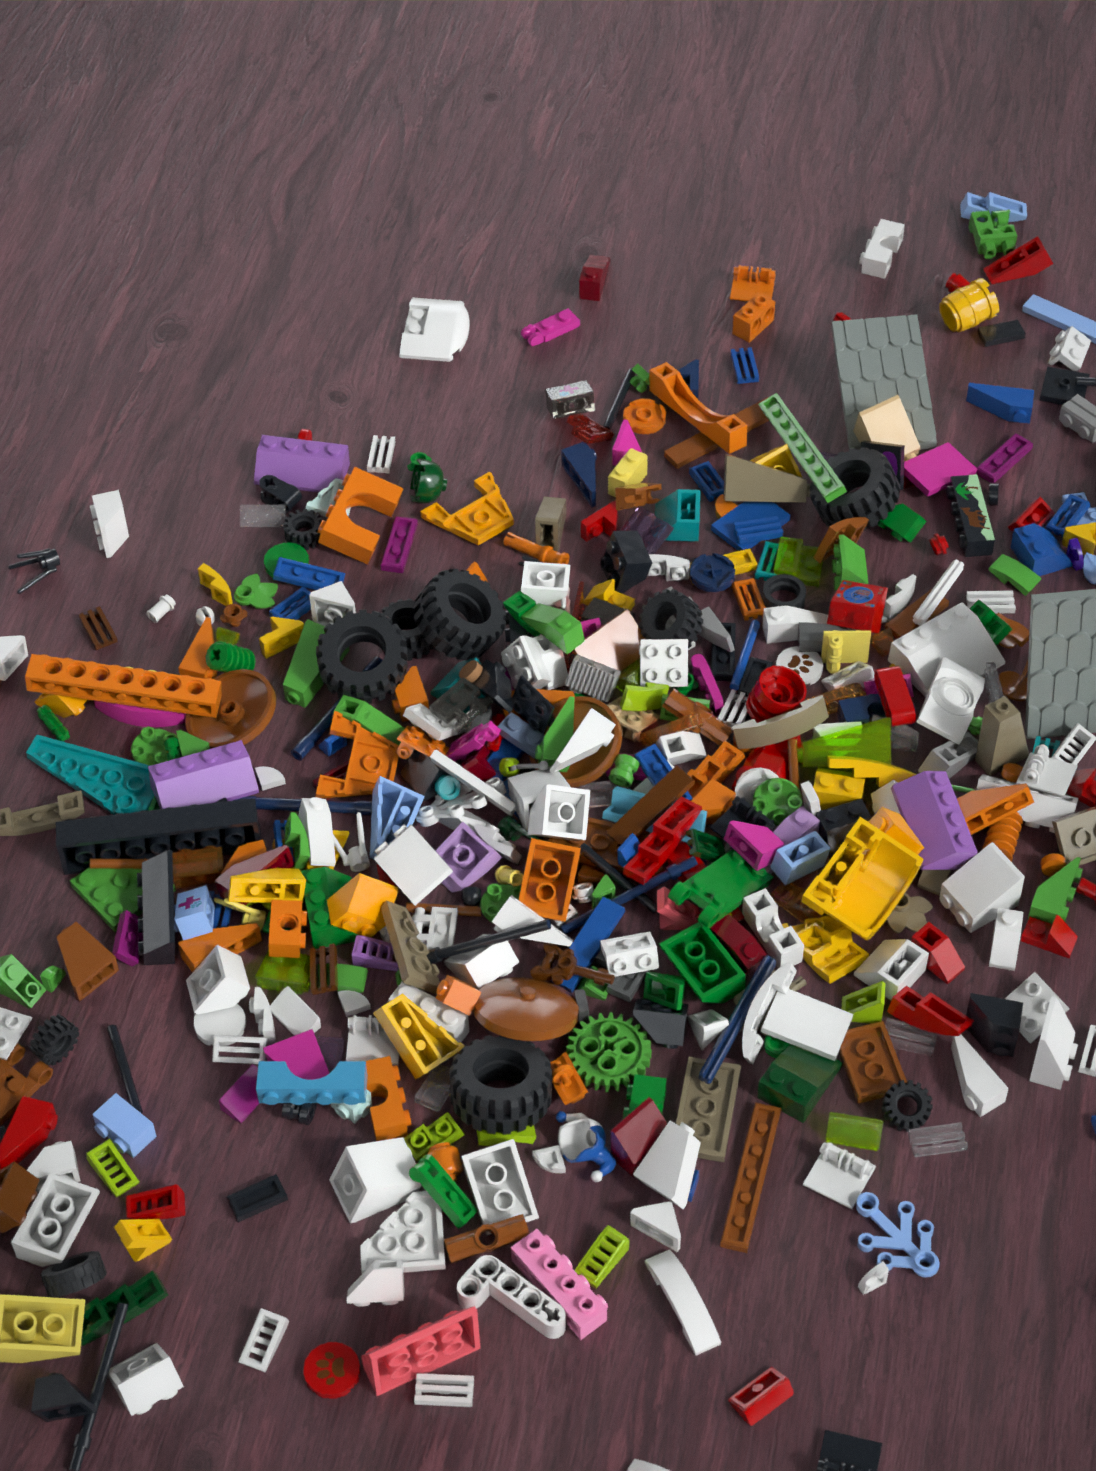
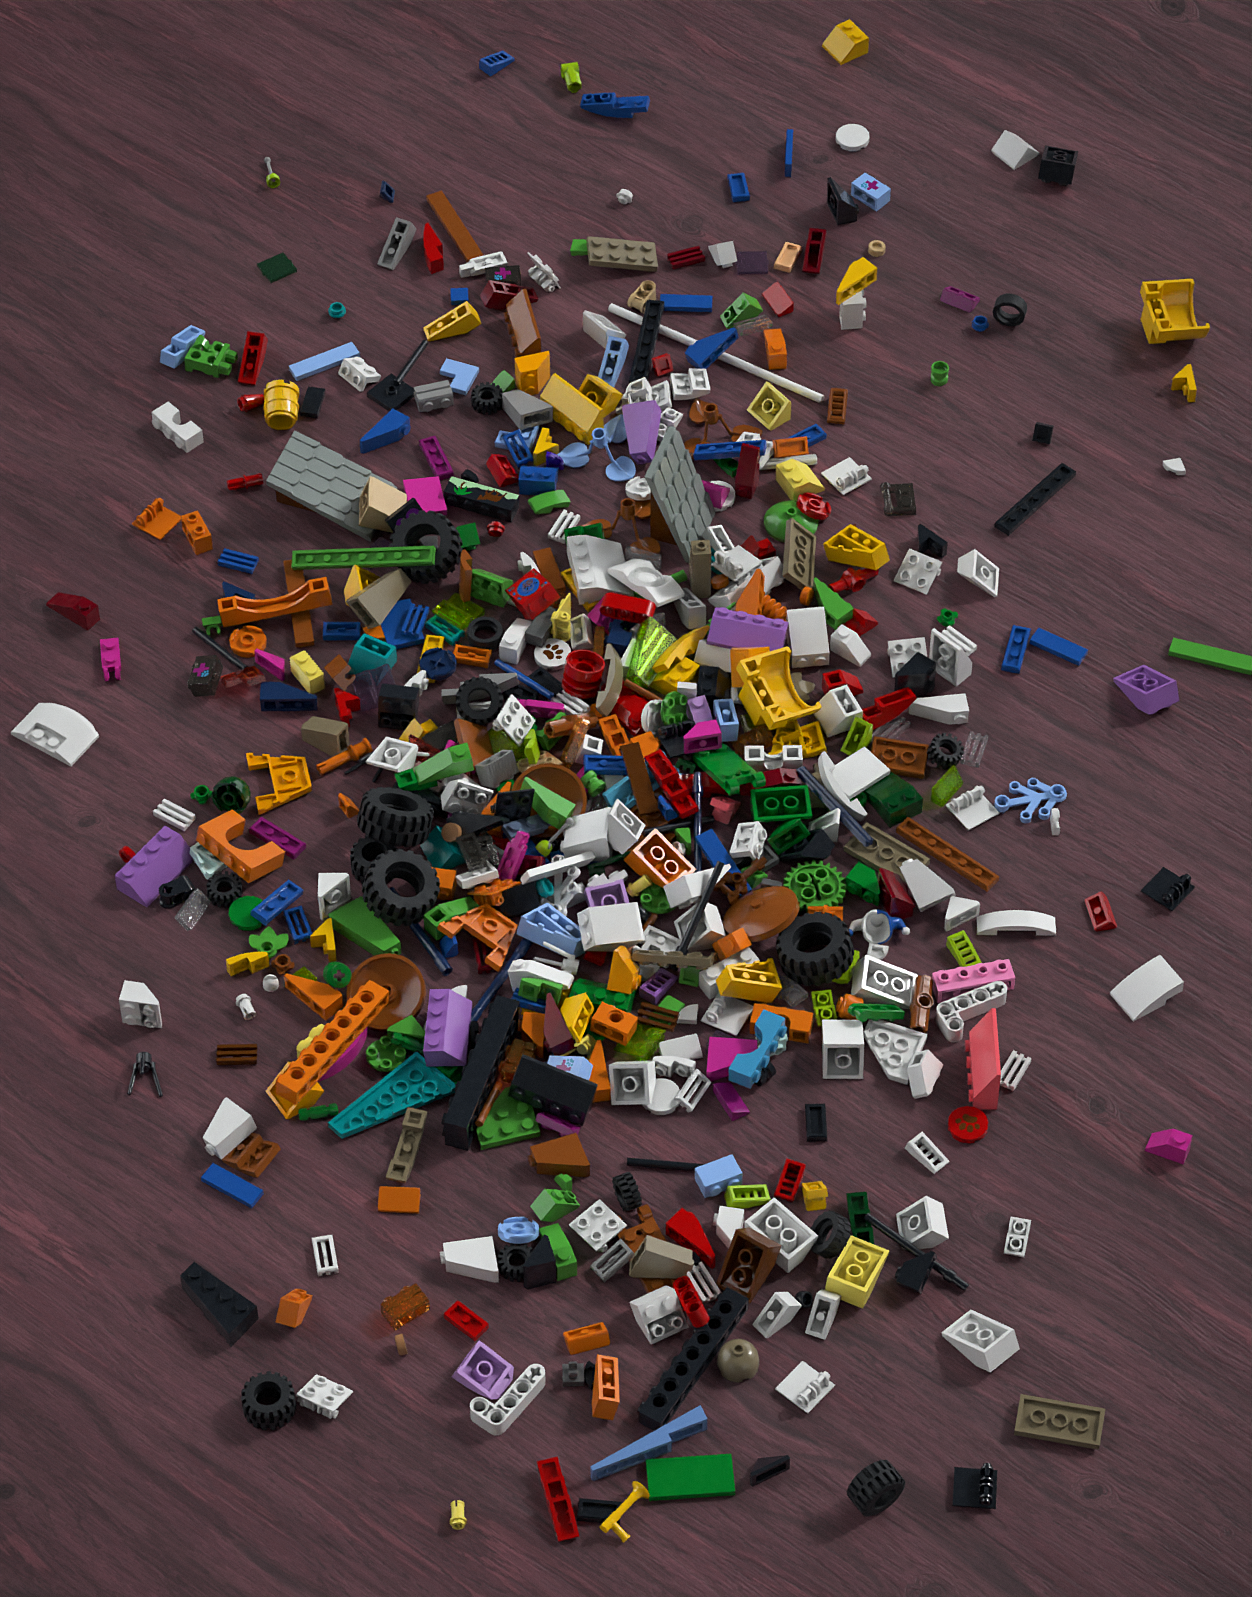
camera: 65 degrees left, 0 degrees up
(586, 740) = (568, 787): white slope -> none
(938, 592) = (542, 548): white axle -> none

